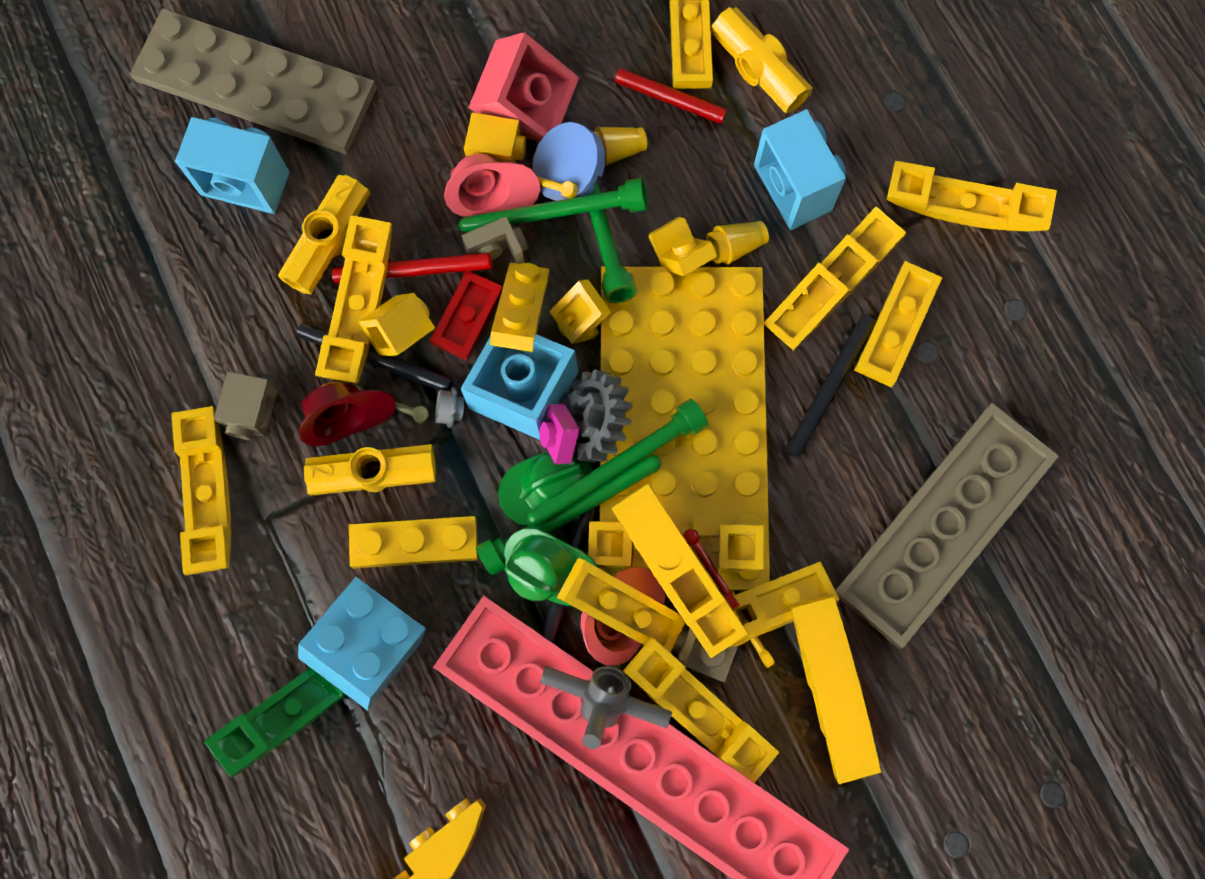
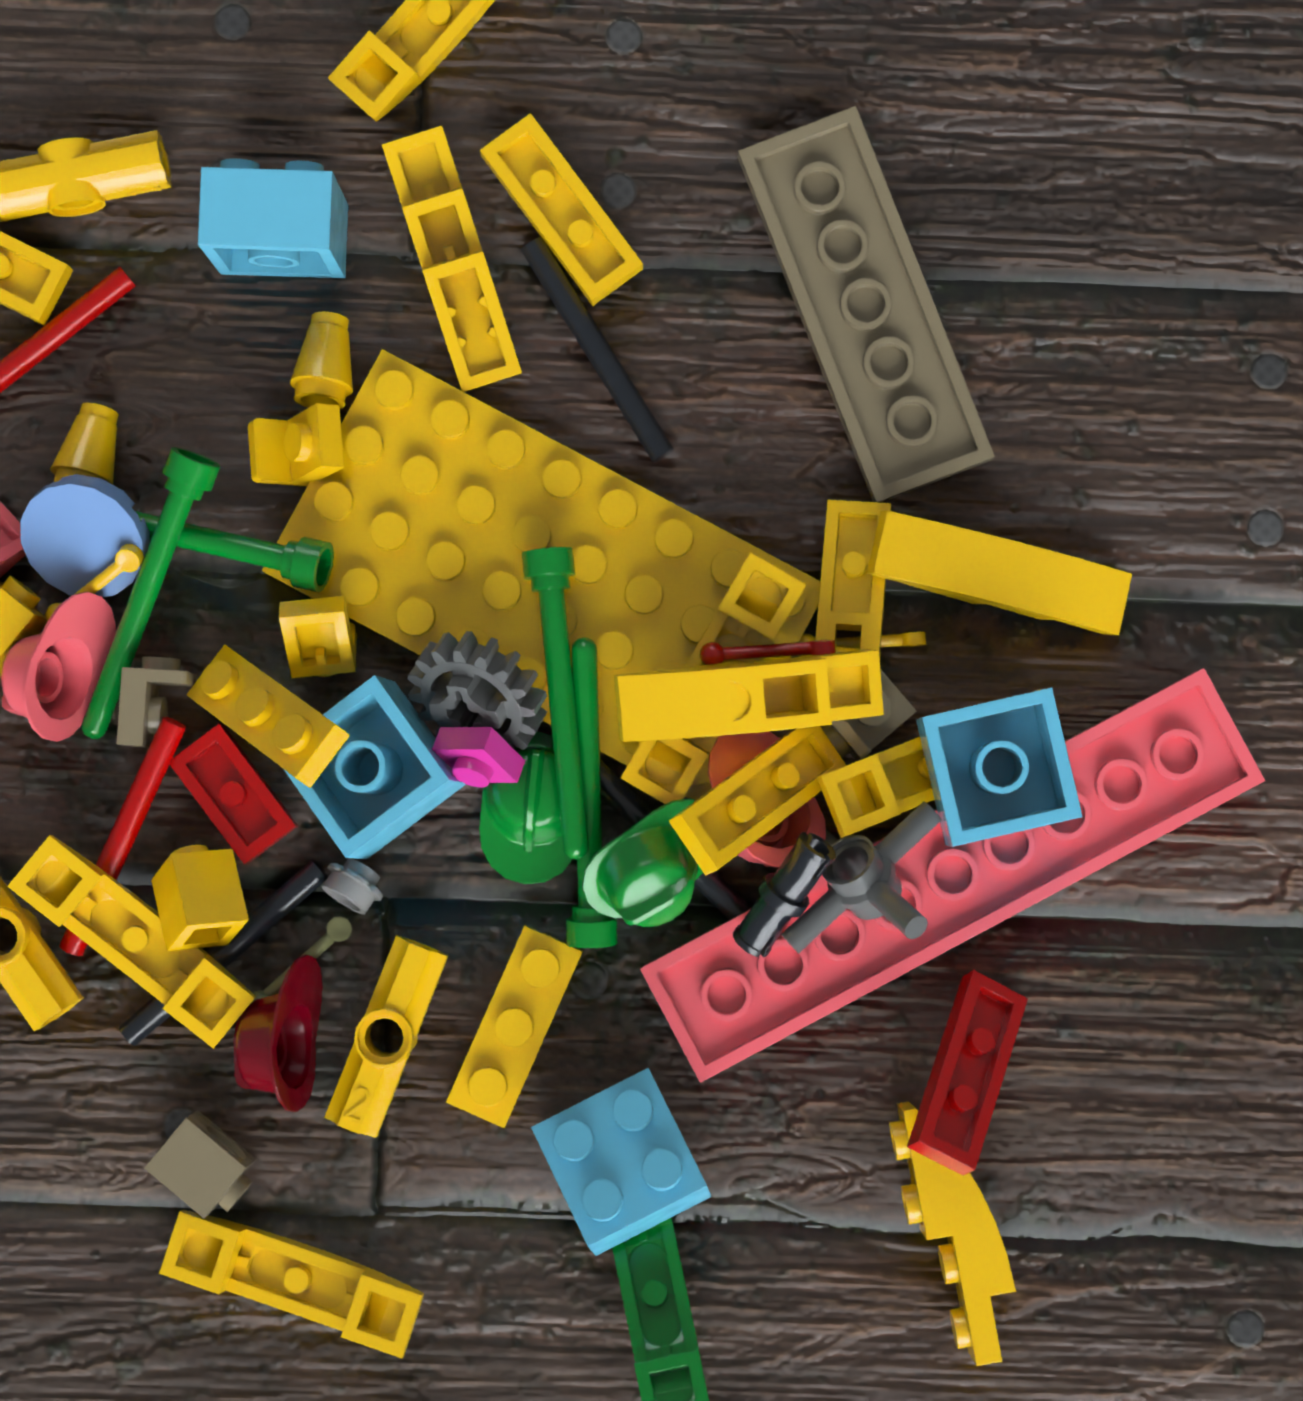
camera: 65 degrees left, 10 degrees up
(519, 829) = (967, 1073): none -> red plate
(571, 654) = (784, 894): none -> black pin
(718, 746) = (999, 767): none -> medium azure brick

